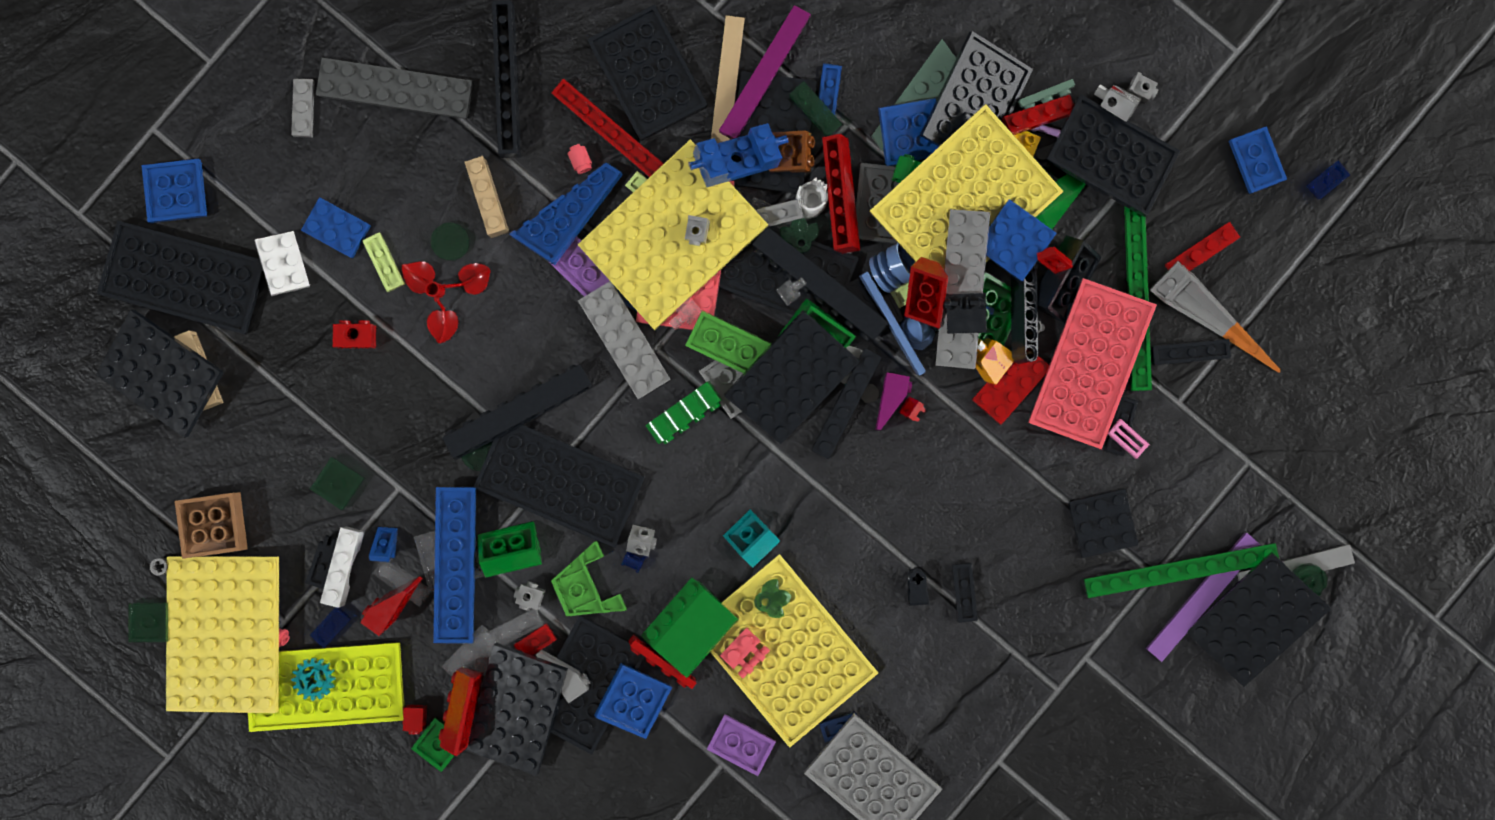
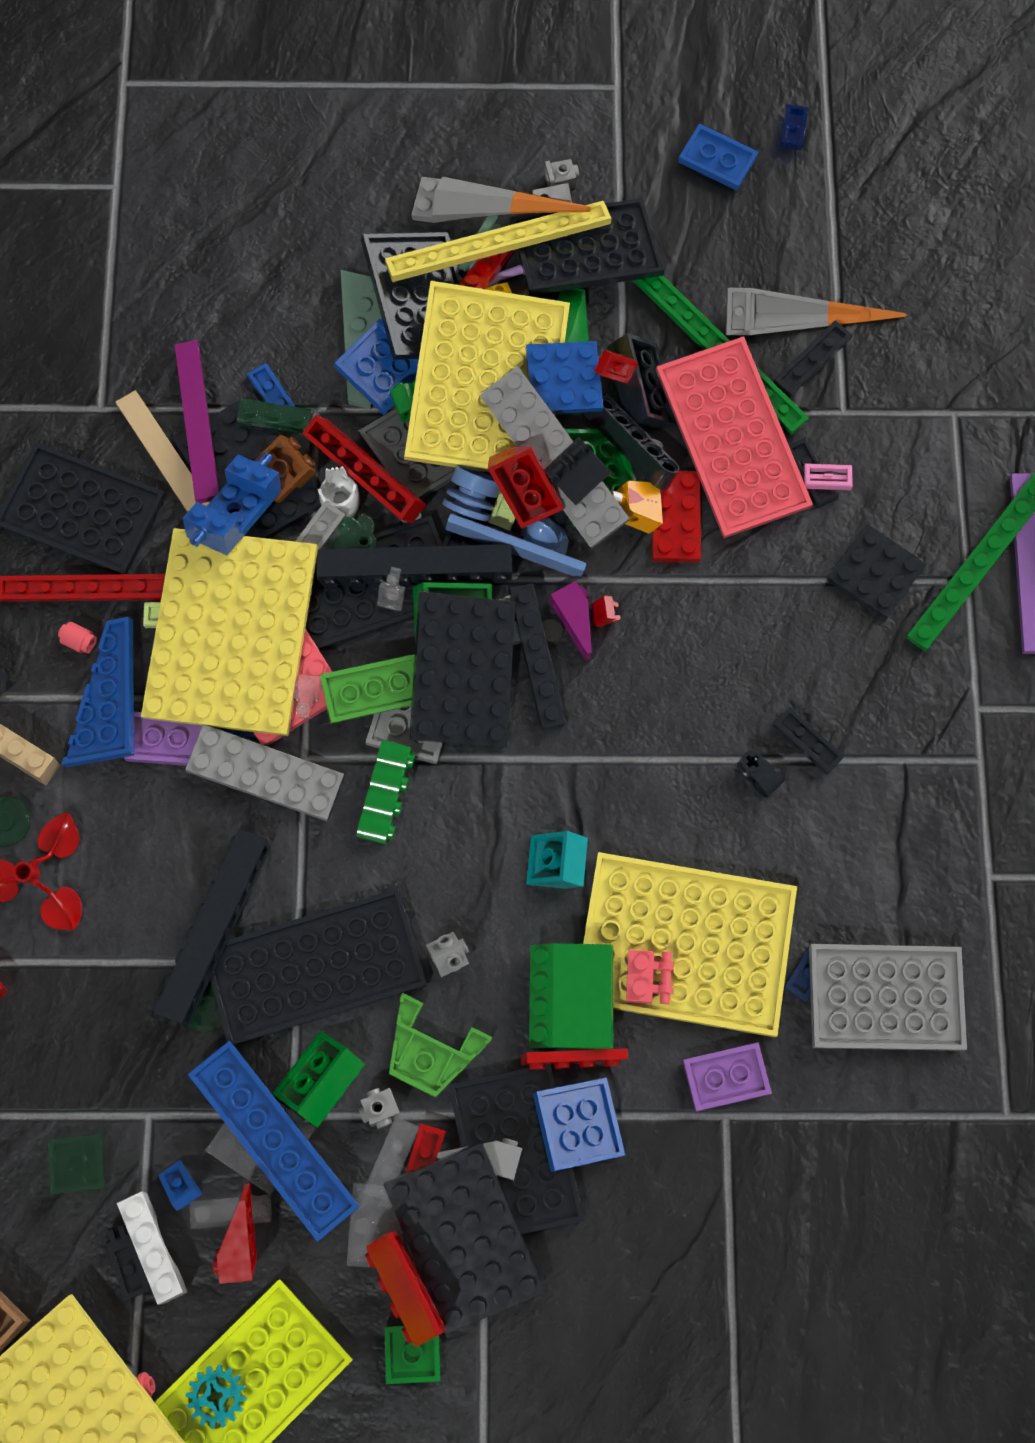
camera: 40 degrees left, 15 degrees down
(330, 627) = (190, 1327): clear blue plate -> none
(414, 718) = (363, 1347): red brick -> none
(633, 561) = (457, 983): clear blue bush -> none
(702, 224) = (246, 592): light grey brick -> none
(775, 599) = (630, 896): clear green plate -> none
(1056, 107) = (496, 241): none -> light yellow plate
(1057, 50) = (457, 199): none -> light grey plate
(1206, 247) = (742, 260): red plate -> none

